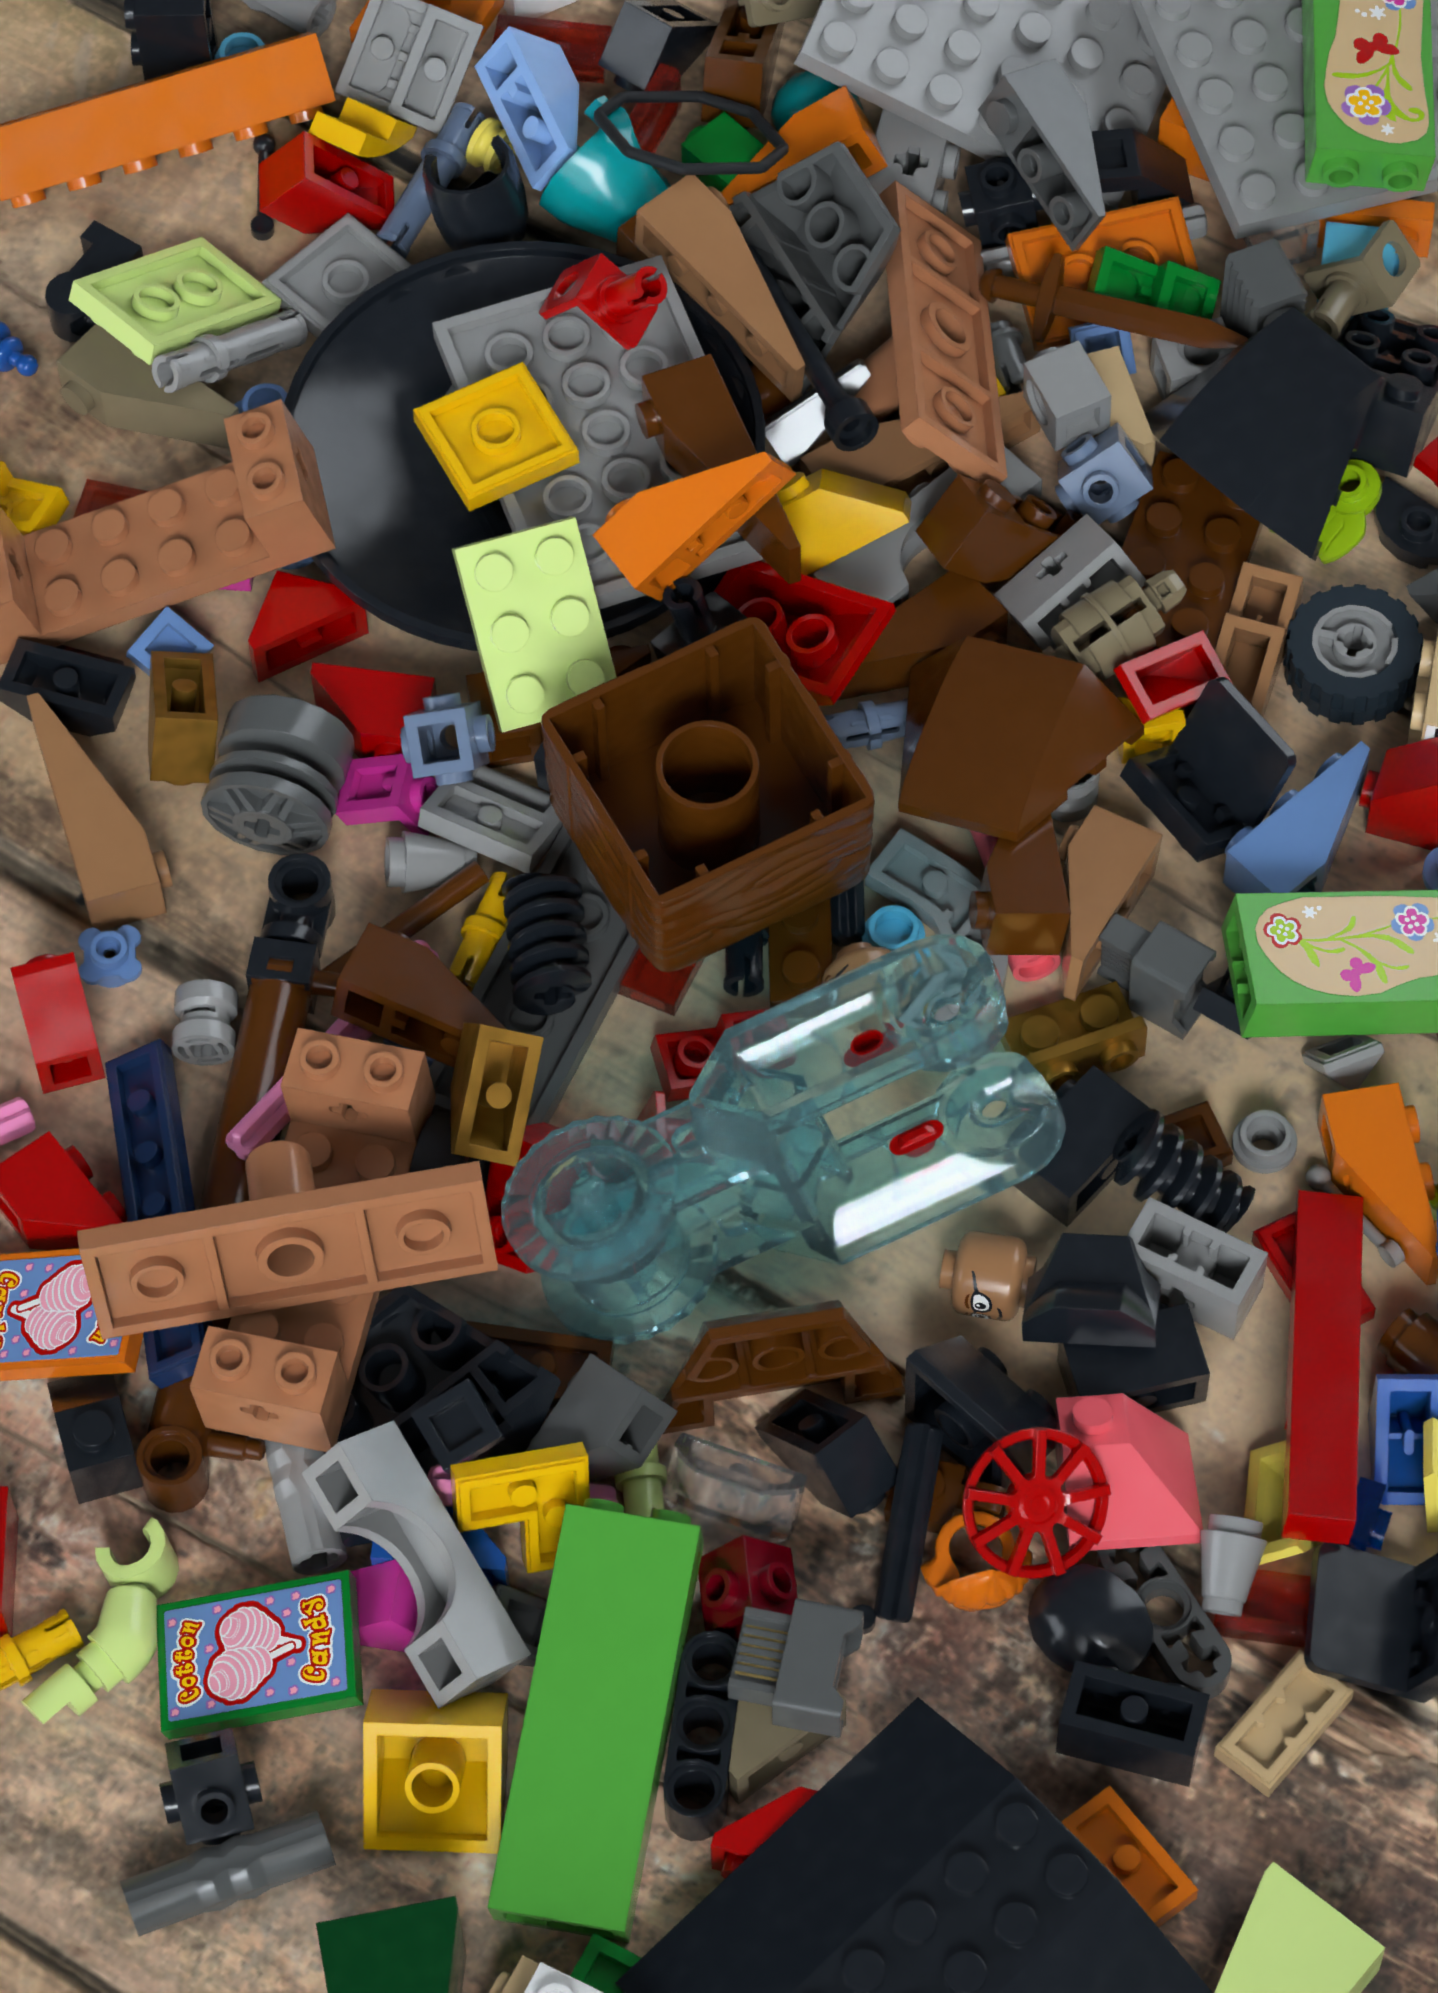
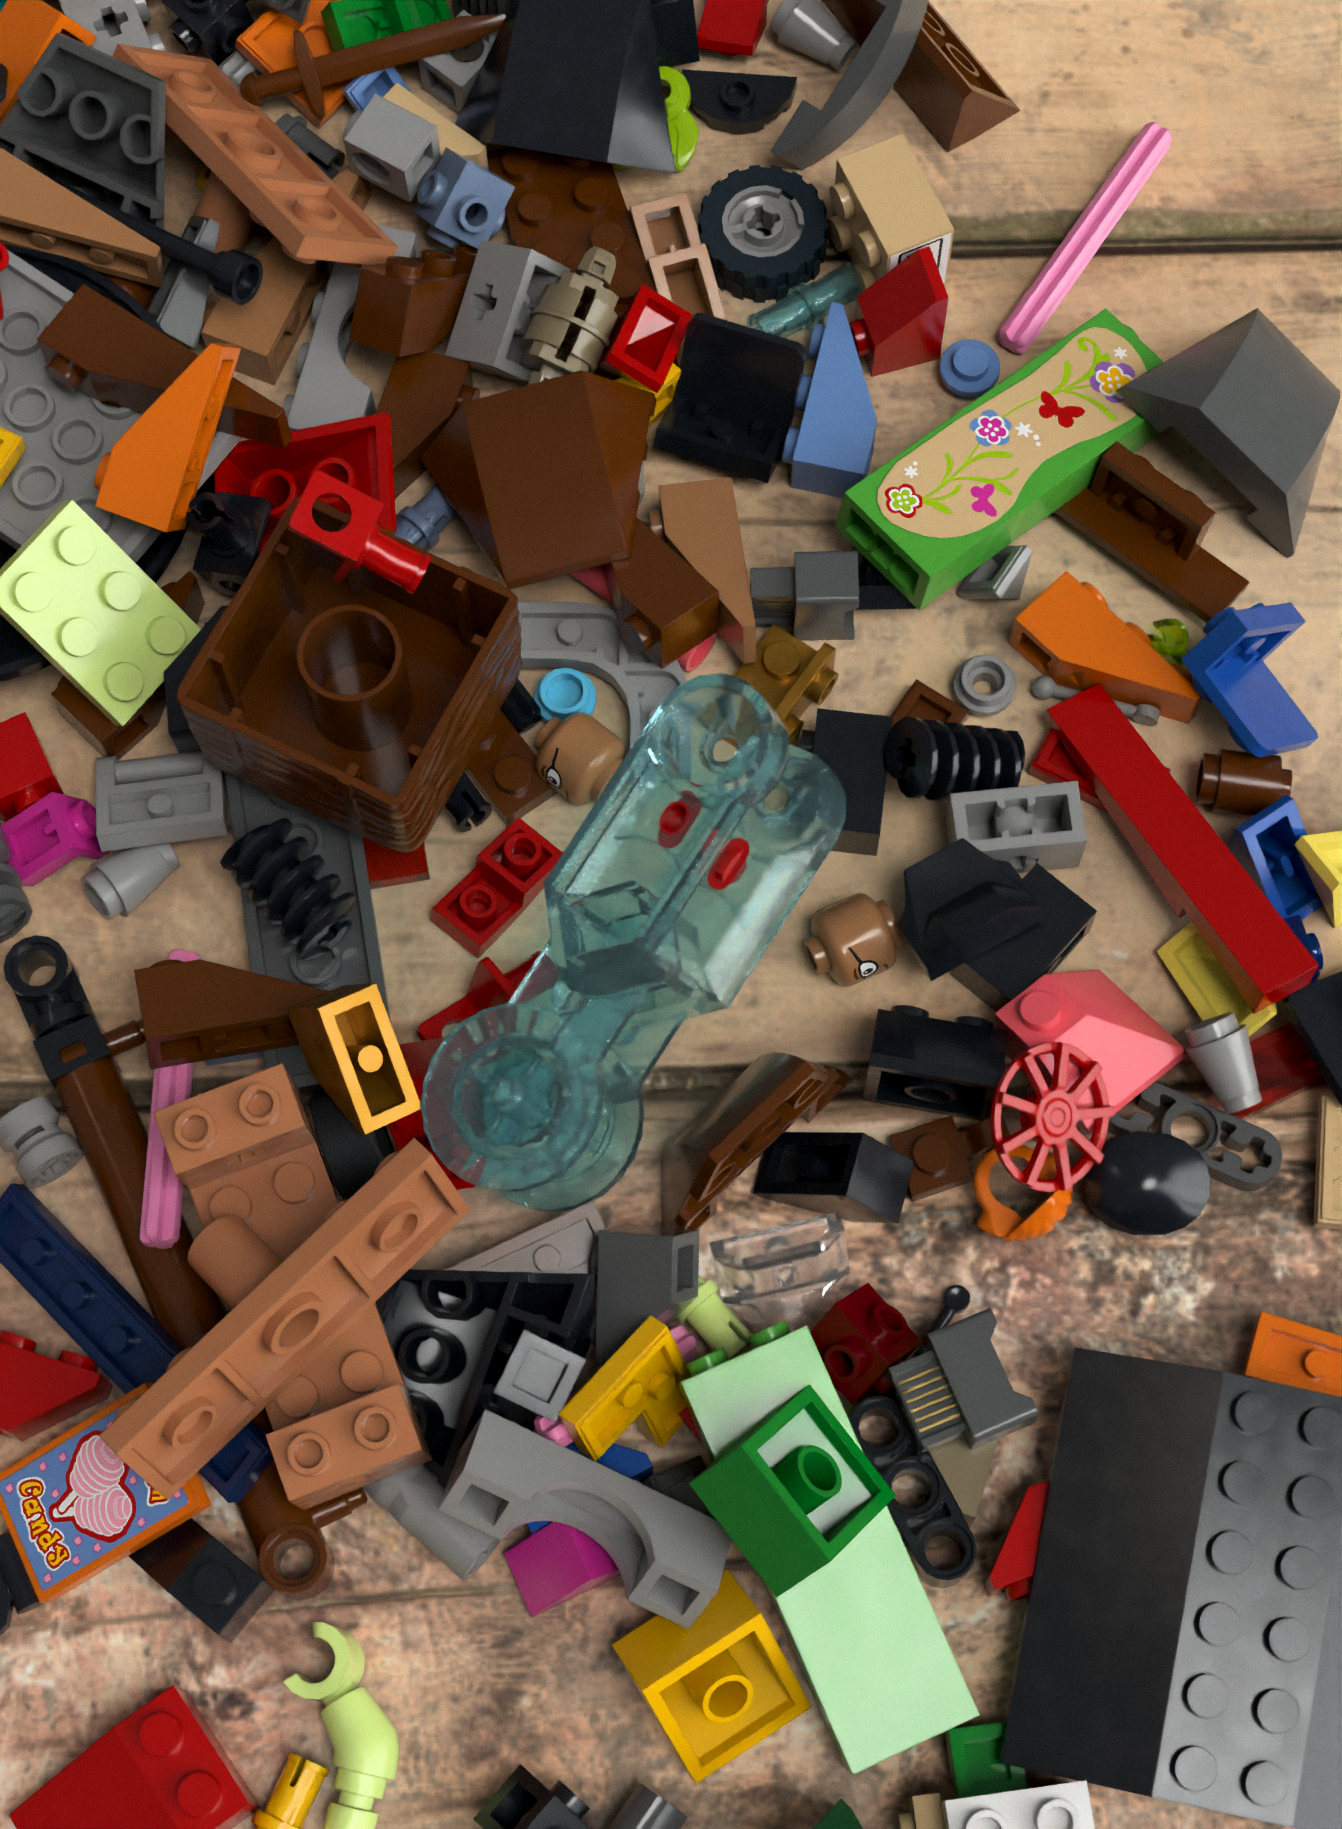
camera: 35 degrees left, 10 degrees up
(259, 1655) = (491, 1678): tile -> none
(427, 748) = (85, 782): sand blue brick -> none
(429, 907) = (152, 937): reddish brown bar -> none
(481, 933) = (222, 908): yellow pin -> none
(592, 1638) = (793, 1491): none -> green slope
(770, 671) = (360, 540): none -> red bracket
(839, 514) = (284, 355): yellow slope -> none
(908, 1522) = (946, 1196): black axle -> none
(1132, 1723) = (1247, 1246): black brick -> none
(1341, 734) = (808, 303): none -> clear light blue pin

